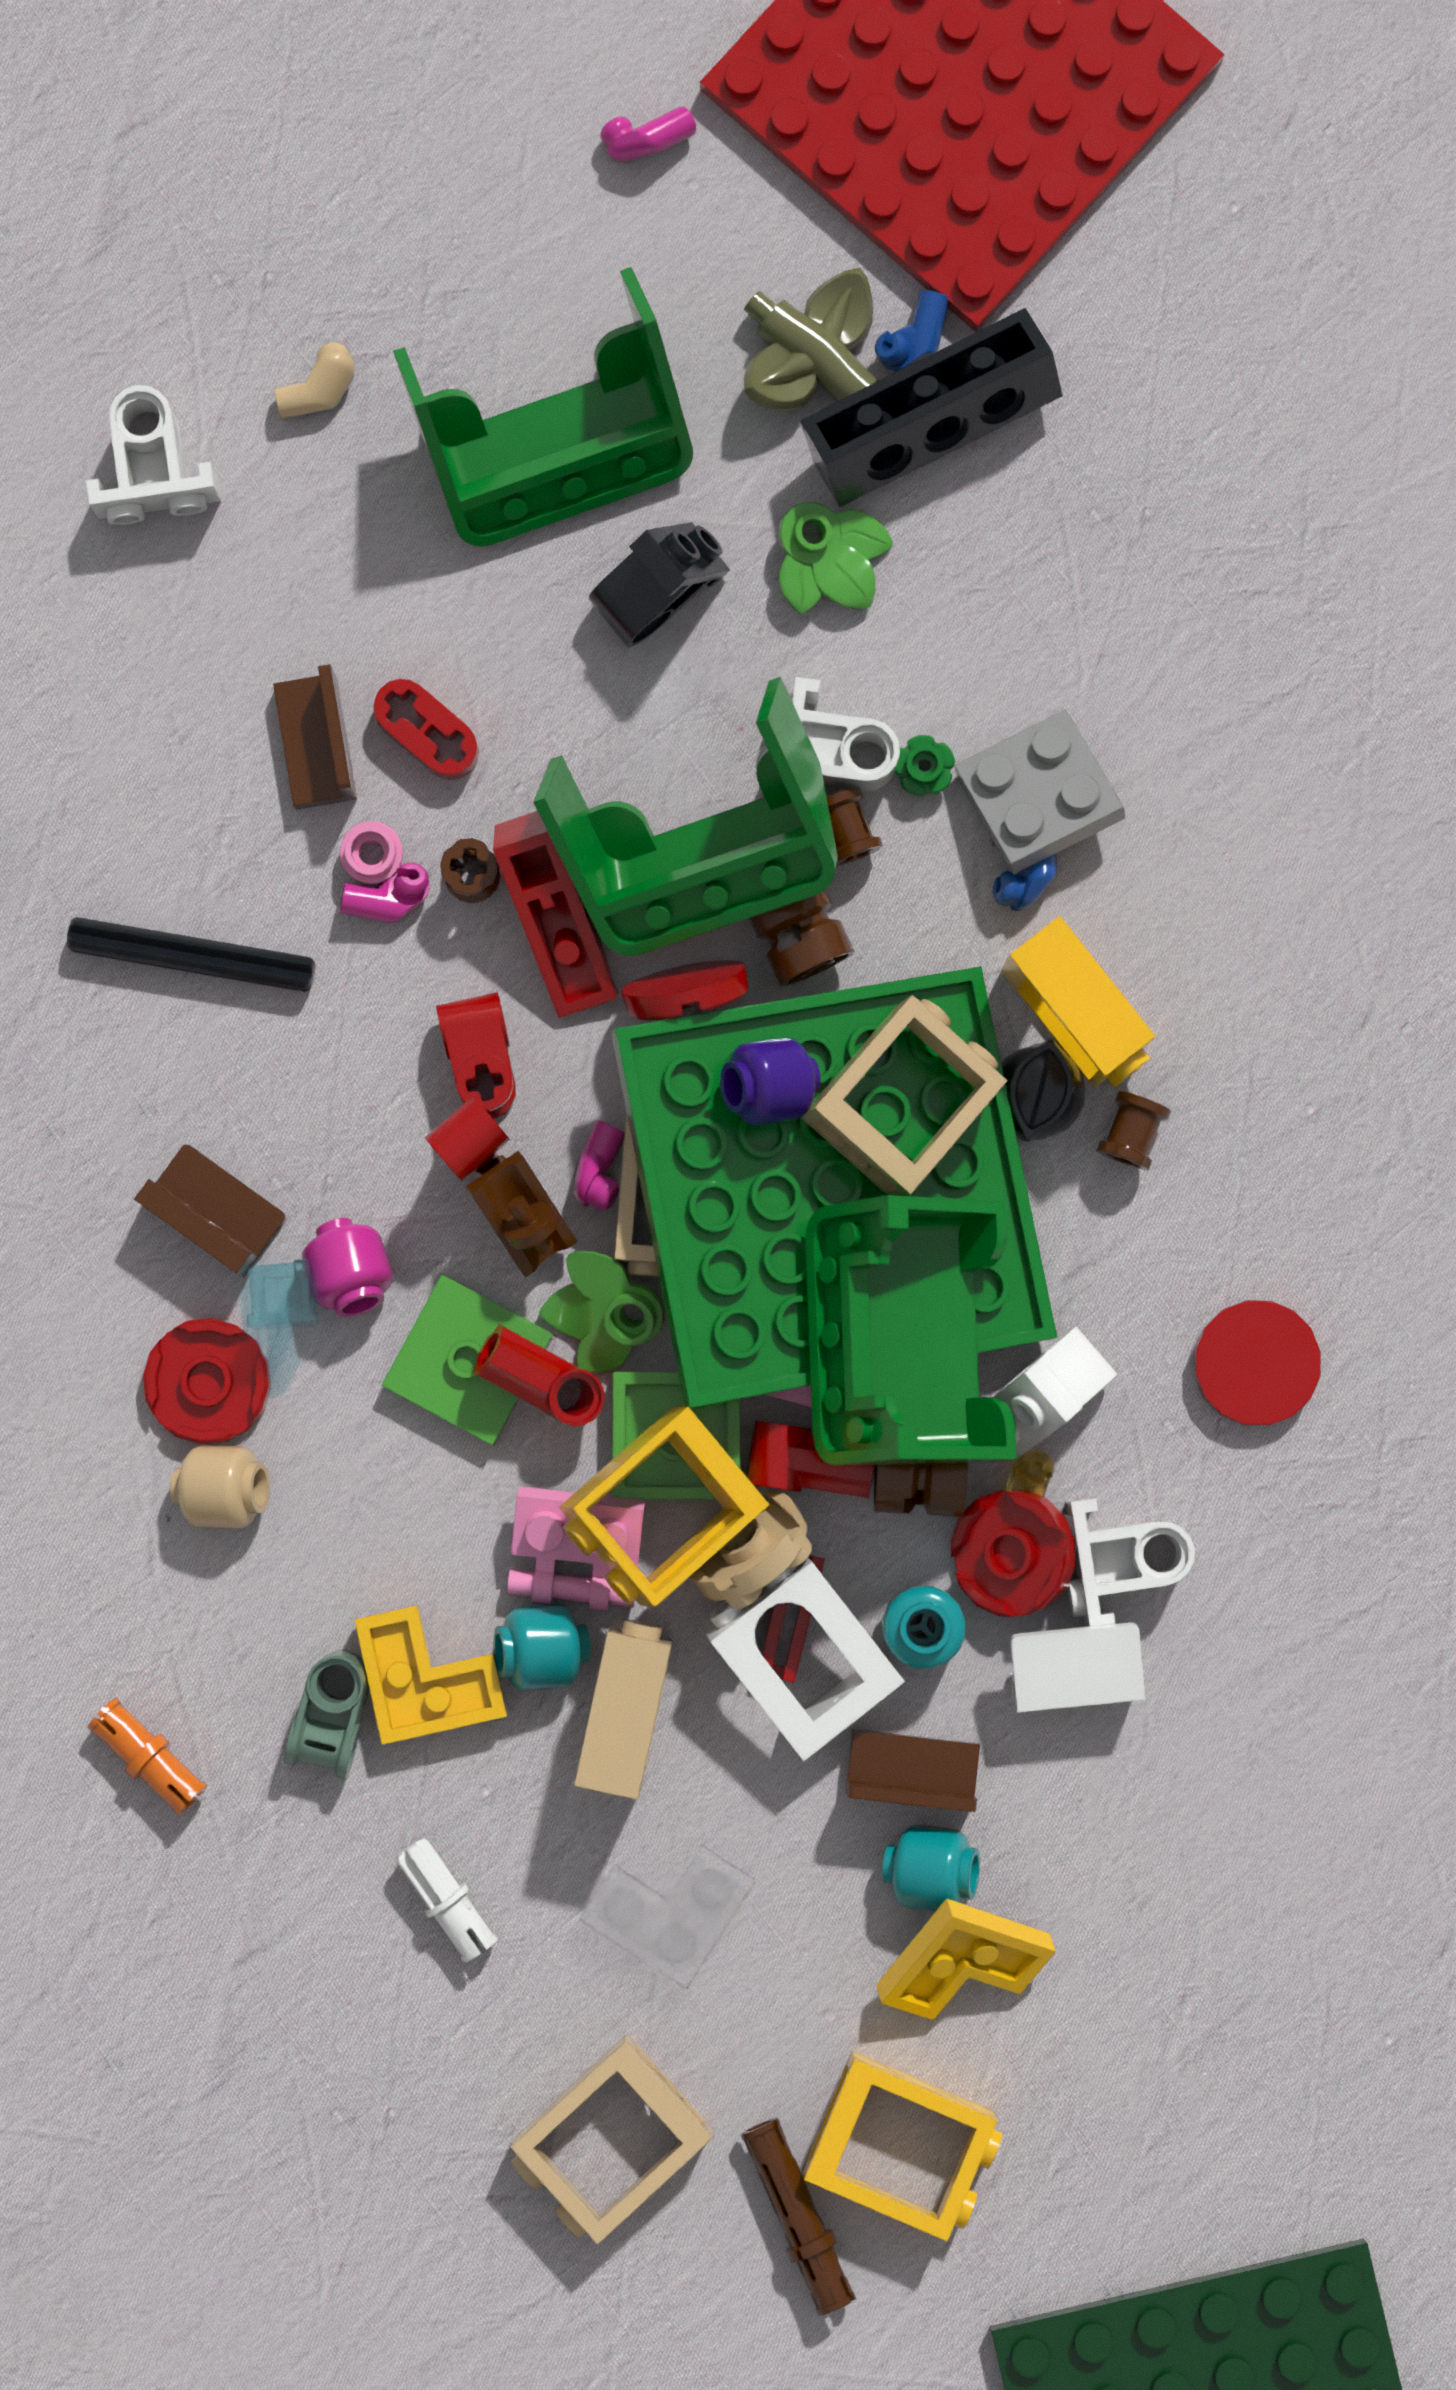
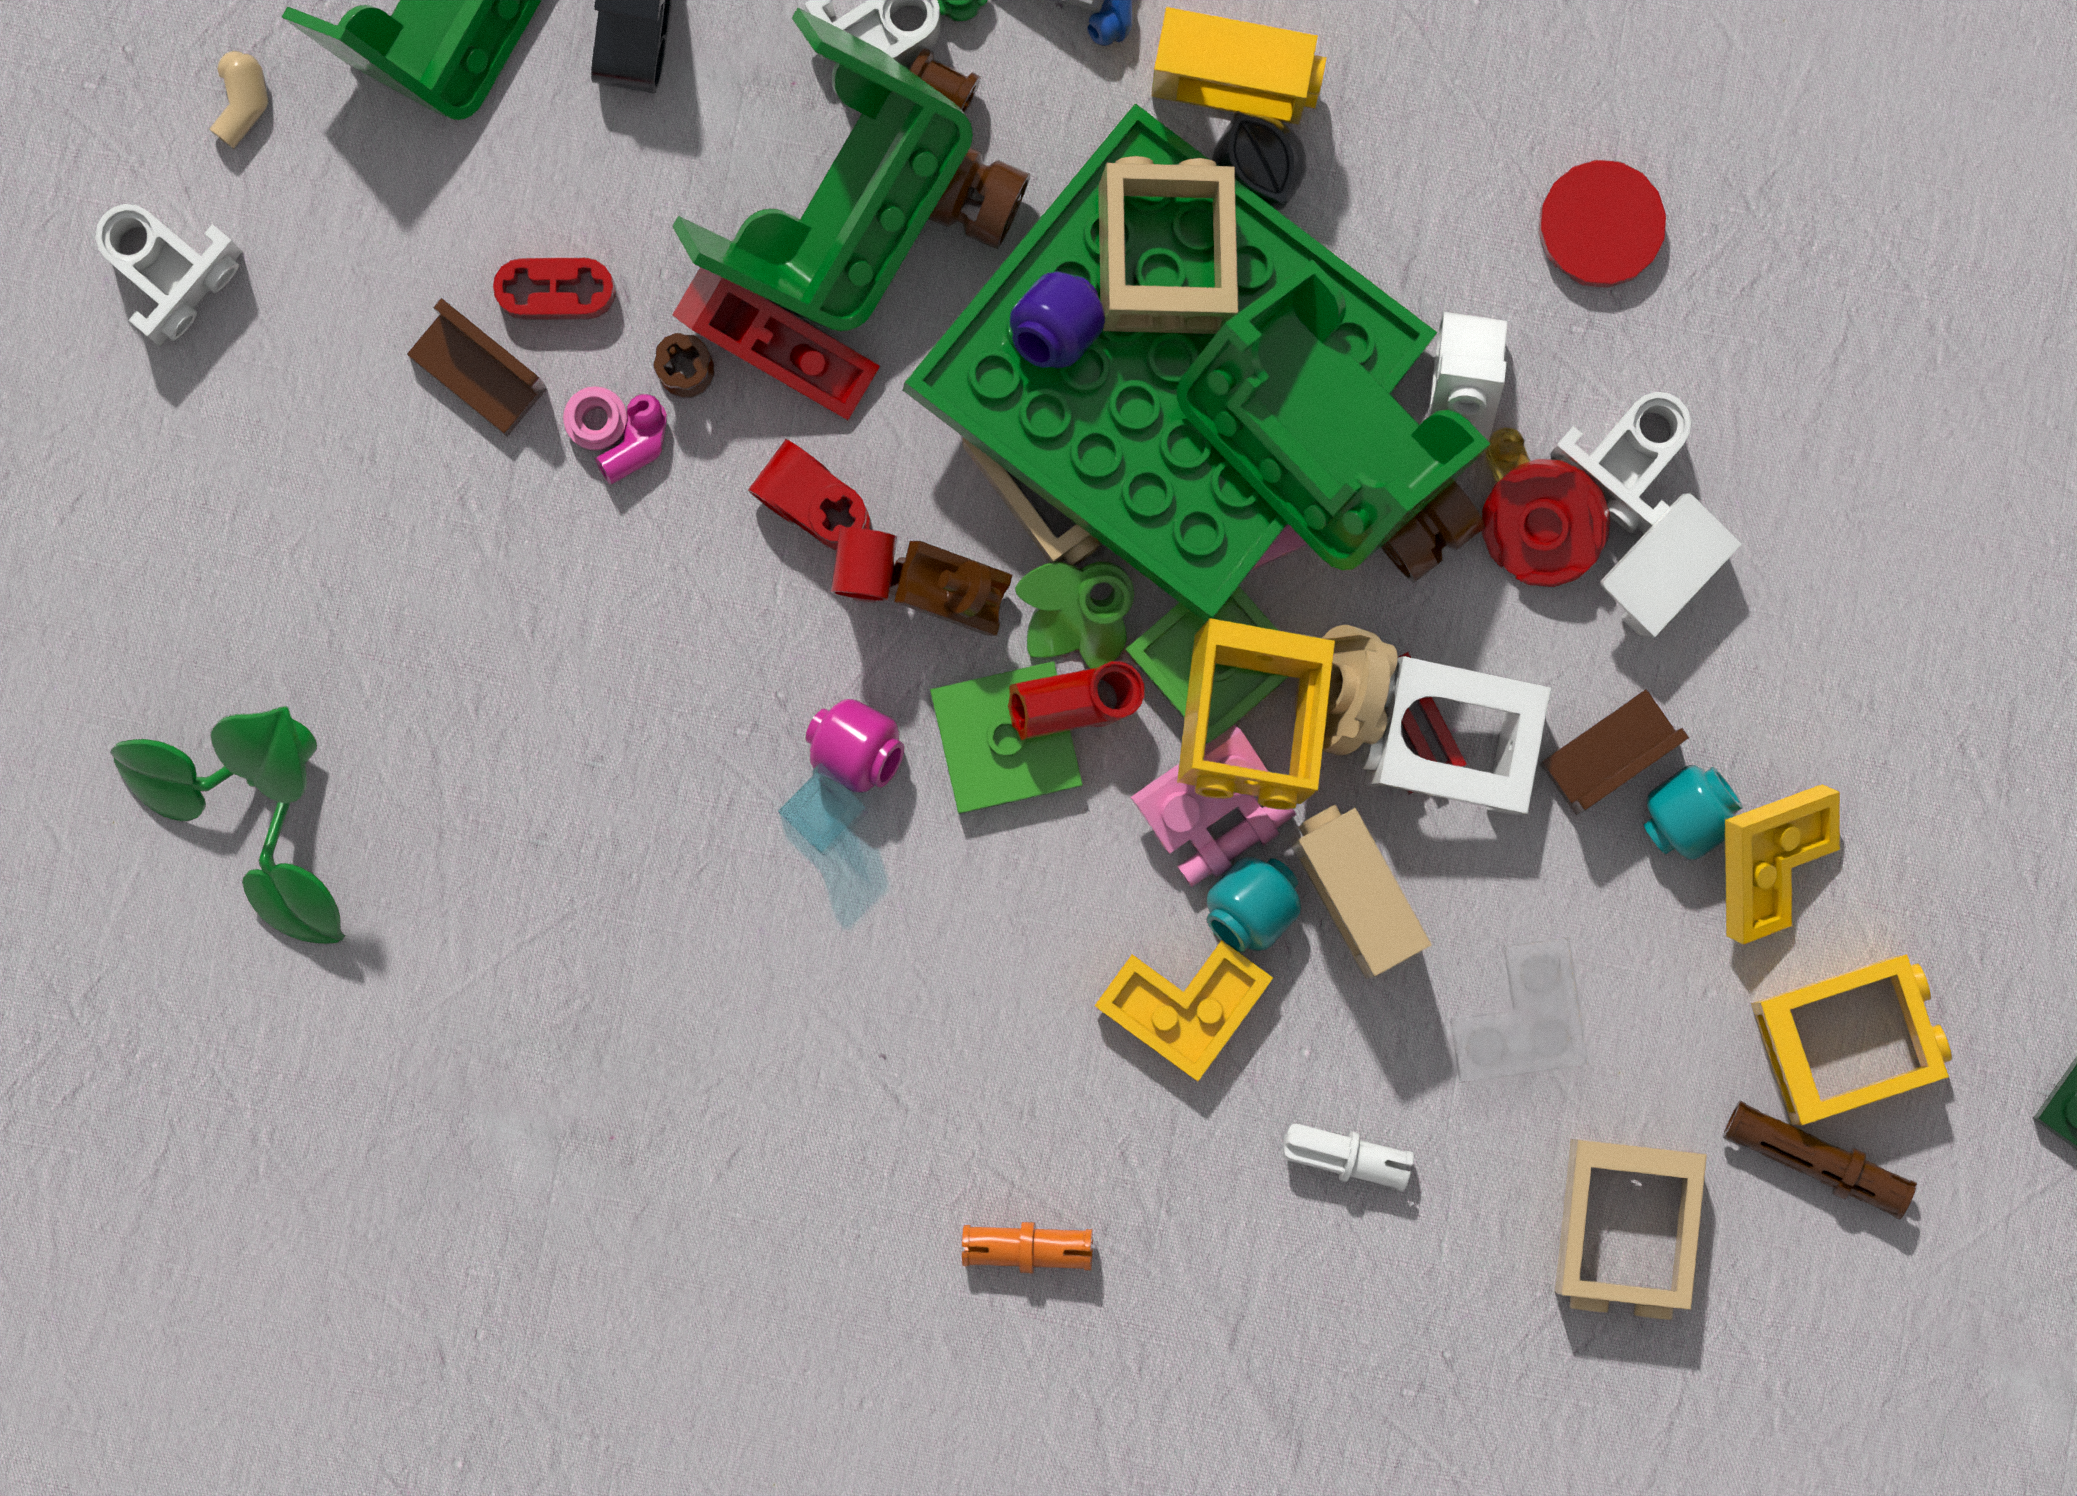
camera: 40 degrees left, 0 degrees up
(191, 954) = (524, 614): black axle -> none
(207, 1381) = (822, 926): red tile -> none
(212, 1209) = (712, 792): reddish brown panel -> none
(220, 1487) = (904, 995): tan head -> none
(328, 1718) = (1140, 1098): sand green piece -> none
(593, 1165) = (972, 507): dark pink arm -> none
(685, 986) = (922, 315): red tile -> none
(789, 1461) = (1321, 595): red piece -> none
(940, 1644) = (1546, 622): teal head -> none
(1133, 1130) = (1357, 128): reddish brown bush -> none

